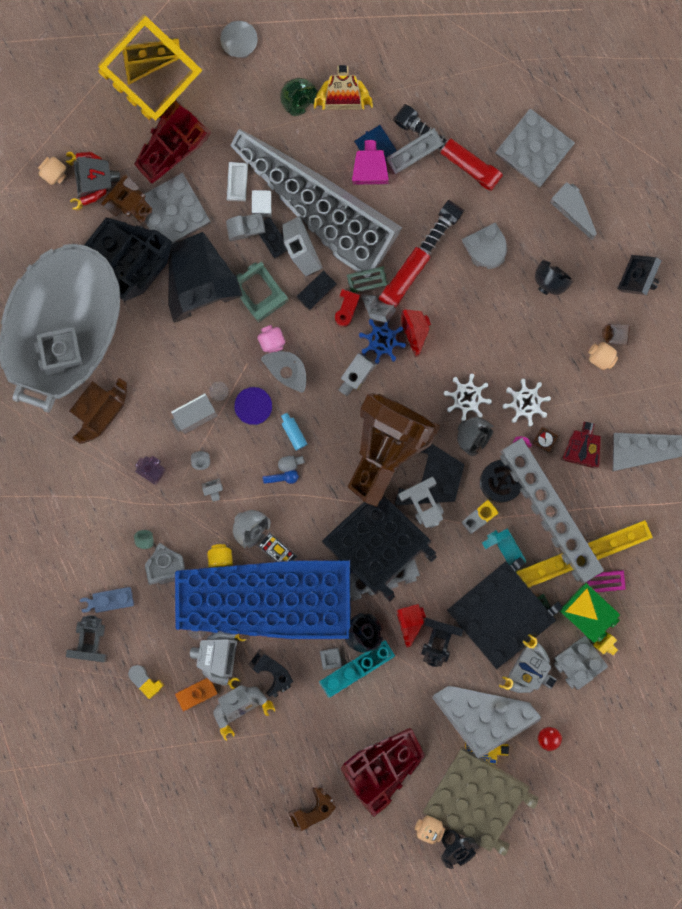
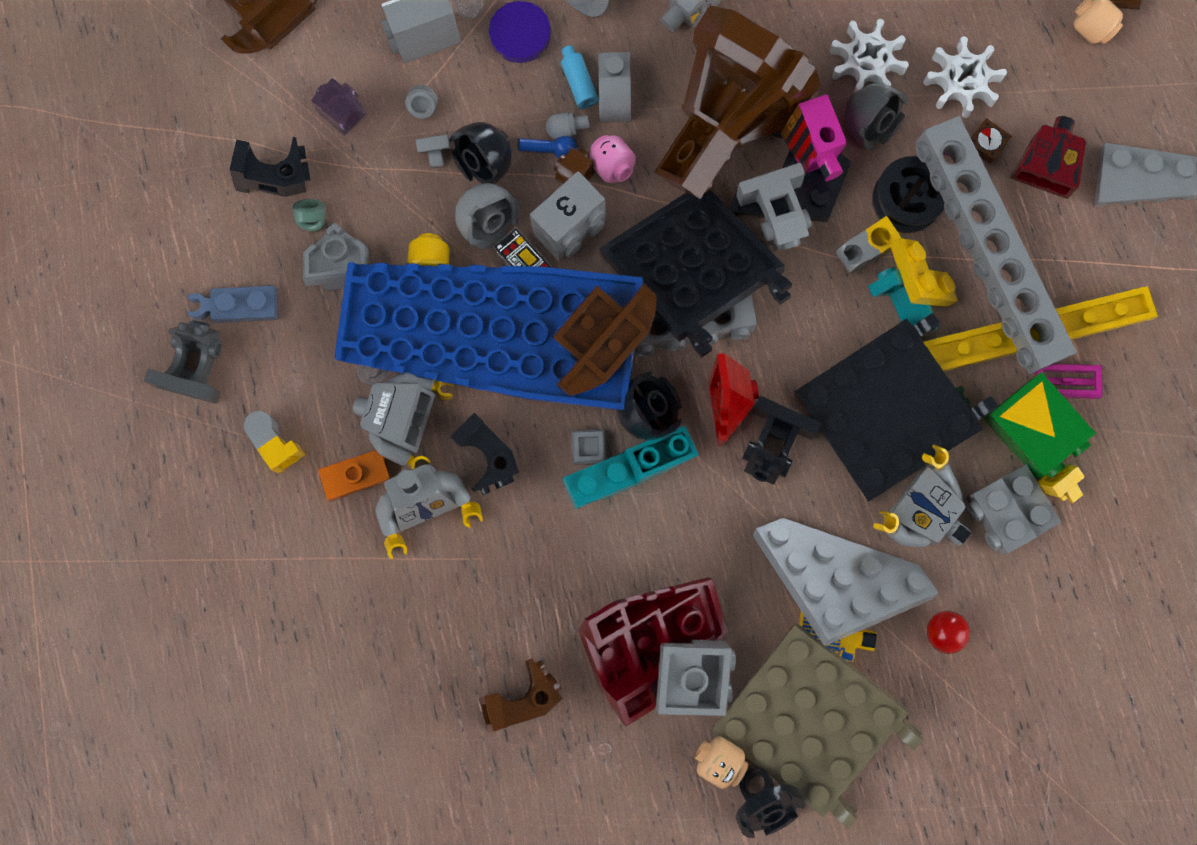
camera: 10 degrees right, 5 degrees down
(106, 521) = (252, 174): none -> black tile
(243, 488) = (481, 152): none -> black cylinder
(299, 491) = (573, 162): none -> reddish brown plate
(301, 524) = (569, 217): none -> light grey brick
(316, 435) = (614, 87): none -> light grey brick
(321, 482) = (612, 159): none -> bright pink head
(332, 599) = (603, 336): none -> reddish brown plate
(409, 785) = (695, 678): none -> light grey plate
(439, 453) = (815, 137): none -> dark pink torso
(512, 538) = (922, 284): none -> yellow plate

